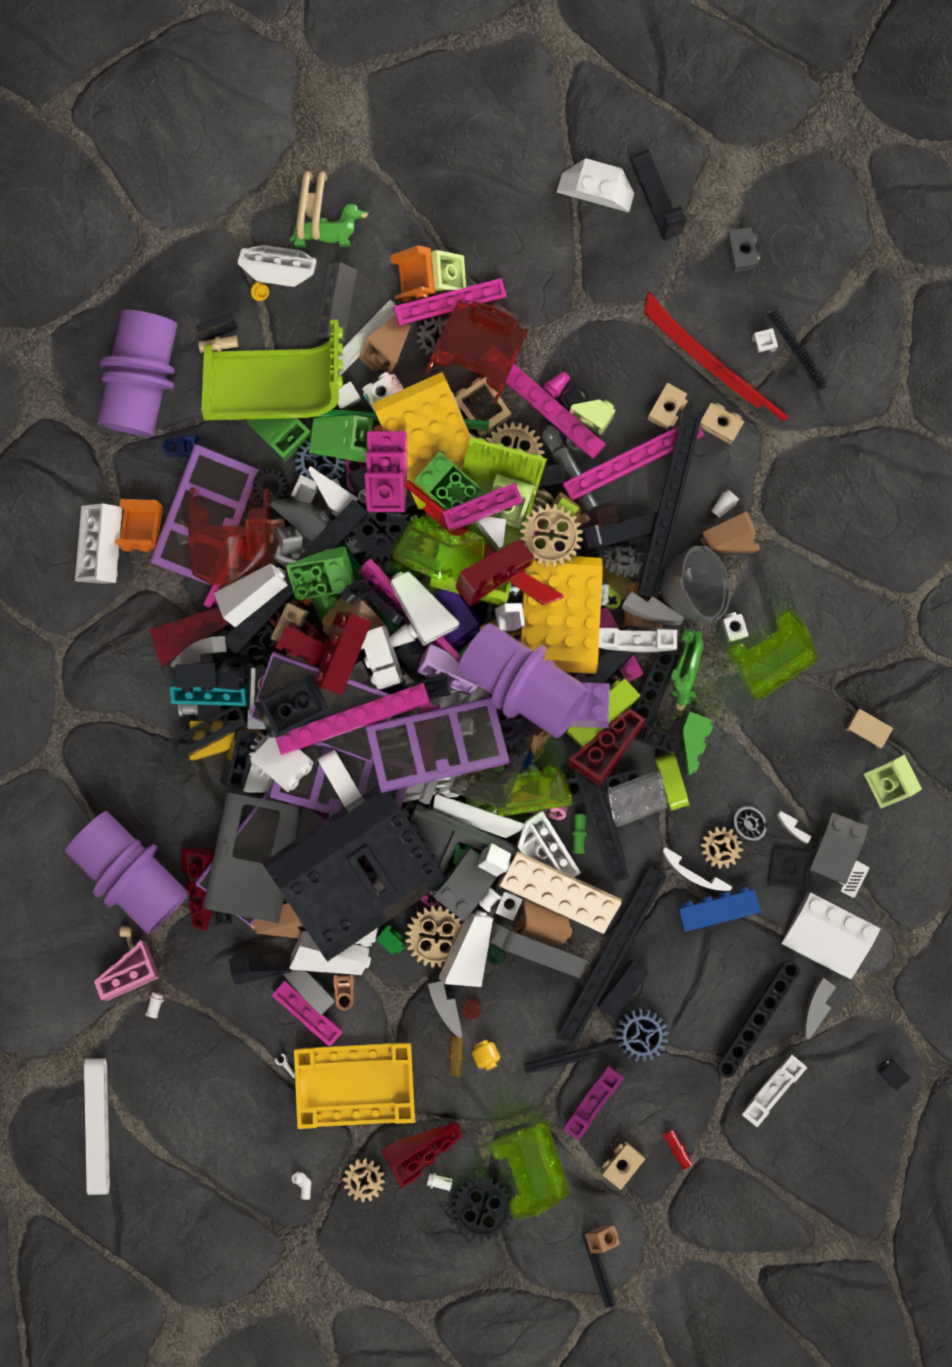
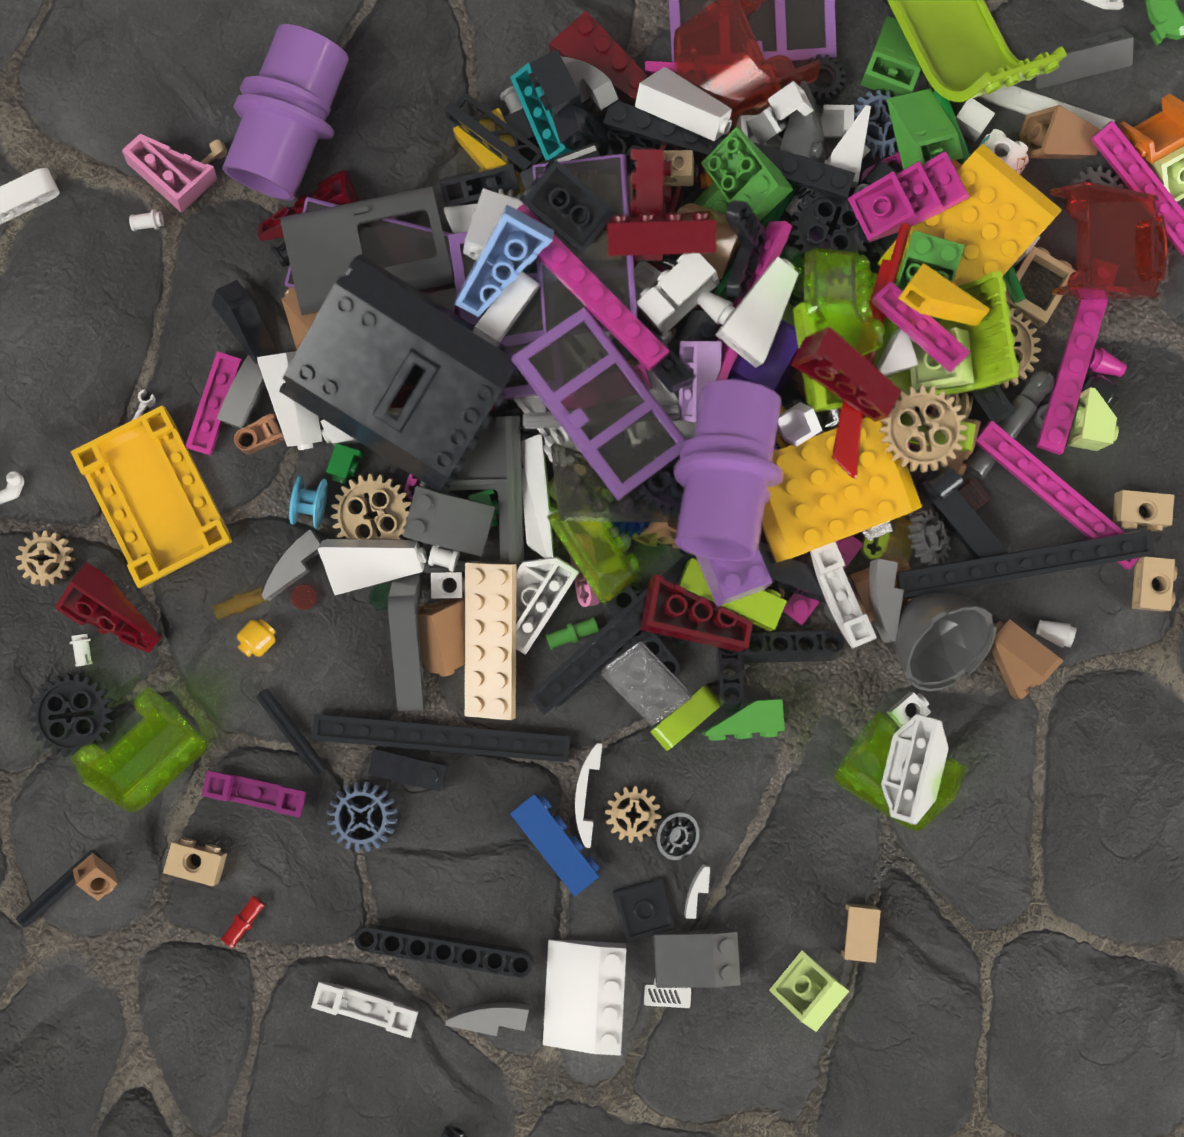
camera: 65 degrees right, 0 degrees up
(282, 520) = (788, 100): none -> white panel
(307, 764) = (506, 253): none -> light blue wedge
(408, 976) = (308, 501): none -> medium azure piece
(468, 487) = (940, 298): none -> yellow slope
(494, 860) = (493, 542): white brick -> none
(686, 668) = (832, 674): bright green animal -> none
(775, 643) = (914, 768): none -> white wedge

